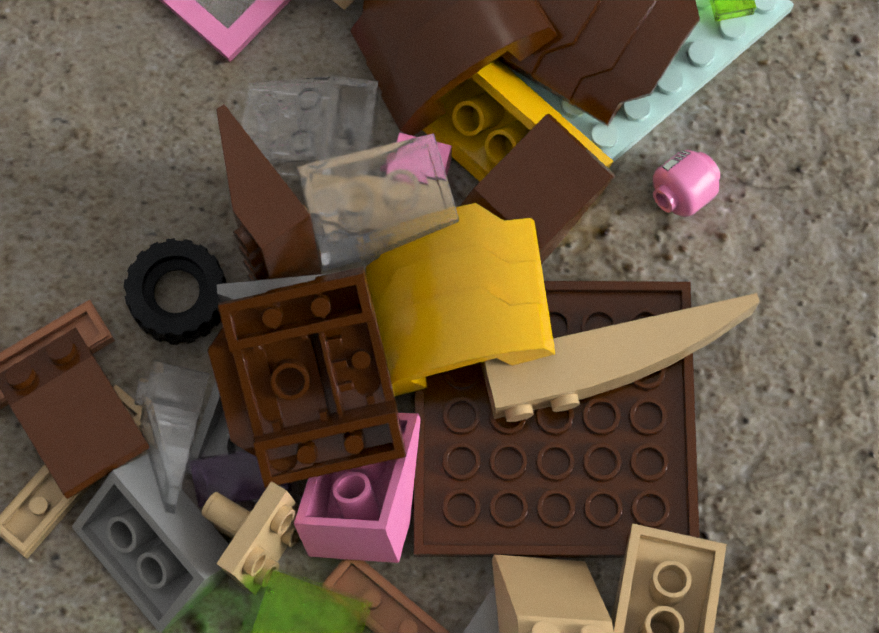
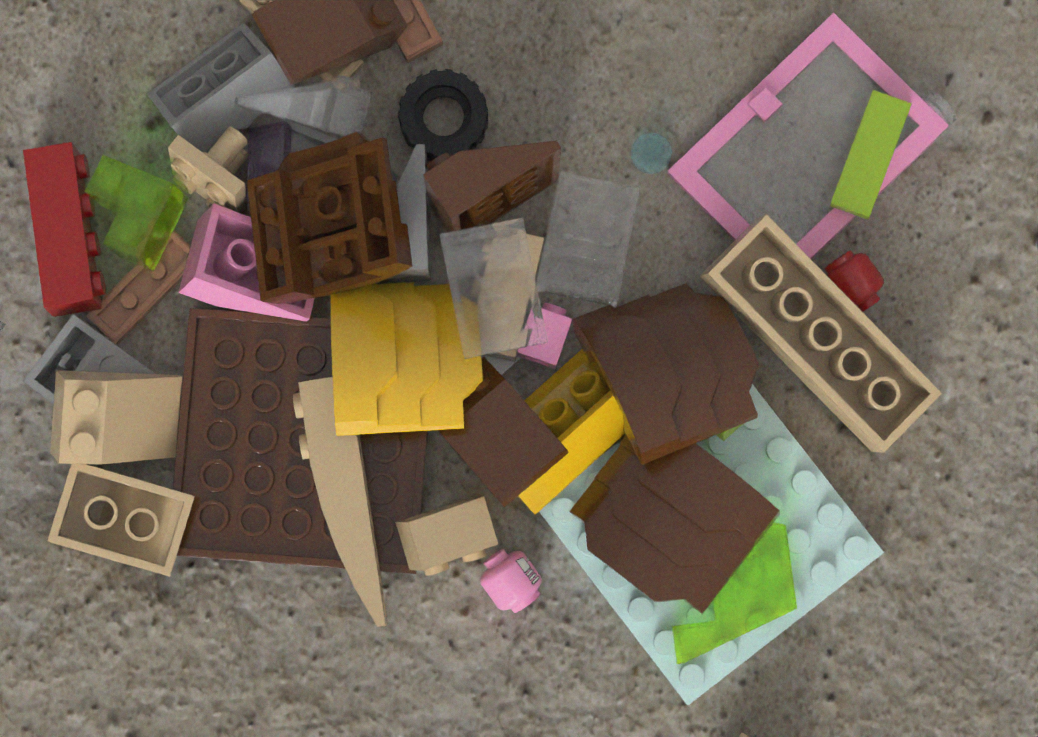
camera: 95 degrees right, 10 degrees up
(209, 75) = (651, 153): none -> clear light blue plate
(645, 247) = (447, 534): none -> tan brick

